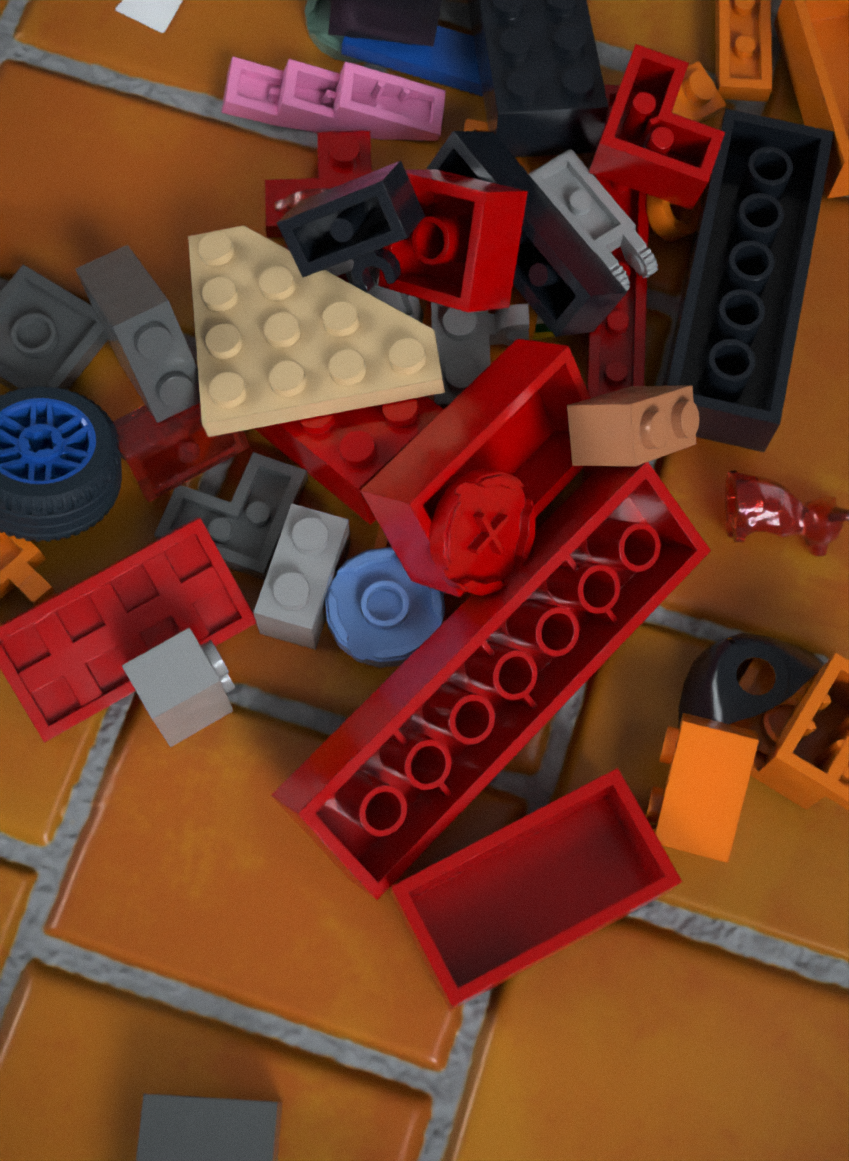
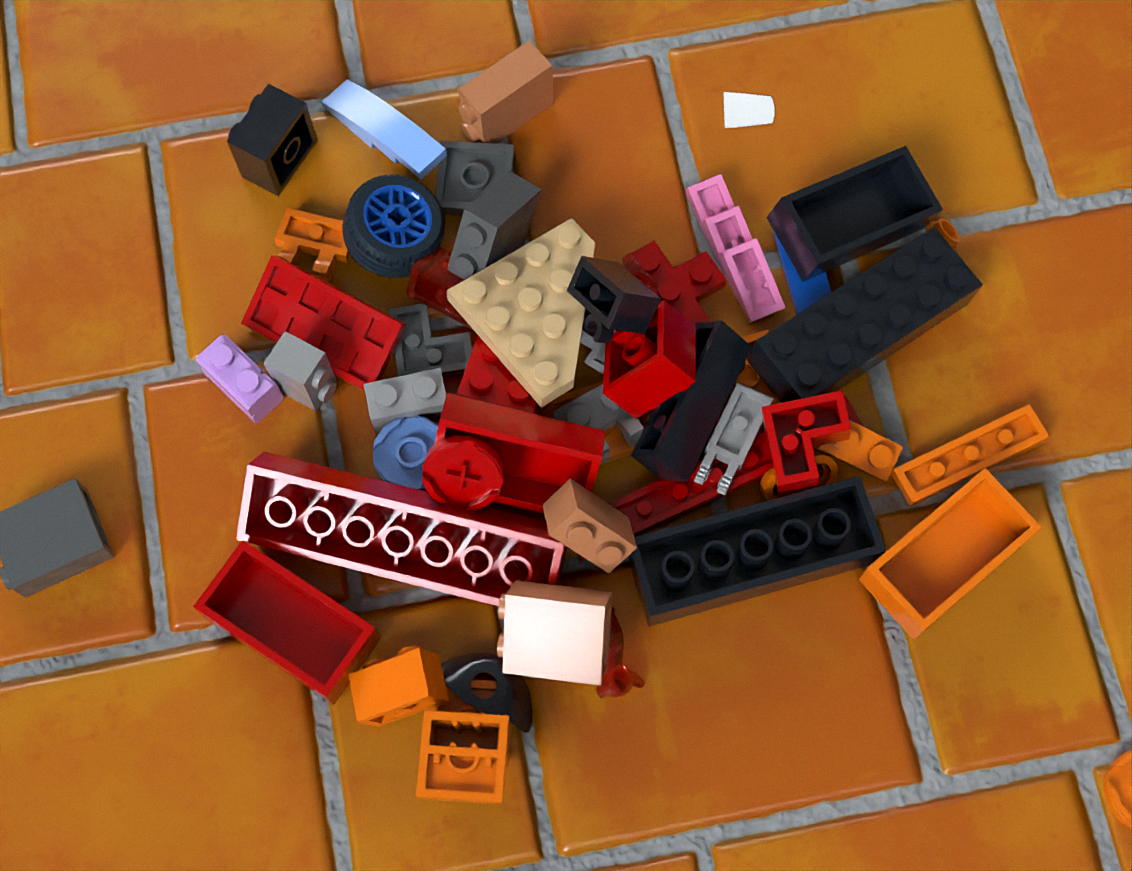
camera: 65 degrees right, 0 degrees up
(128, 782) = (240, 378): none -> lavender brick
(745, 542) = (555, 632): none -> brick

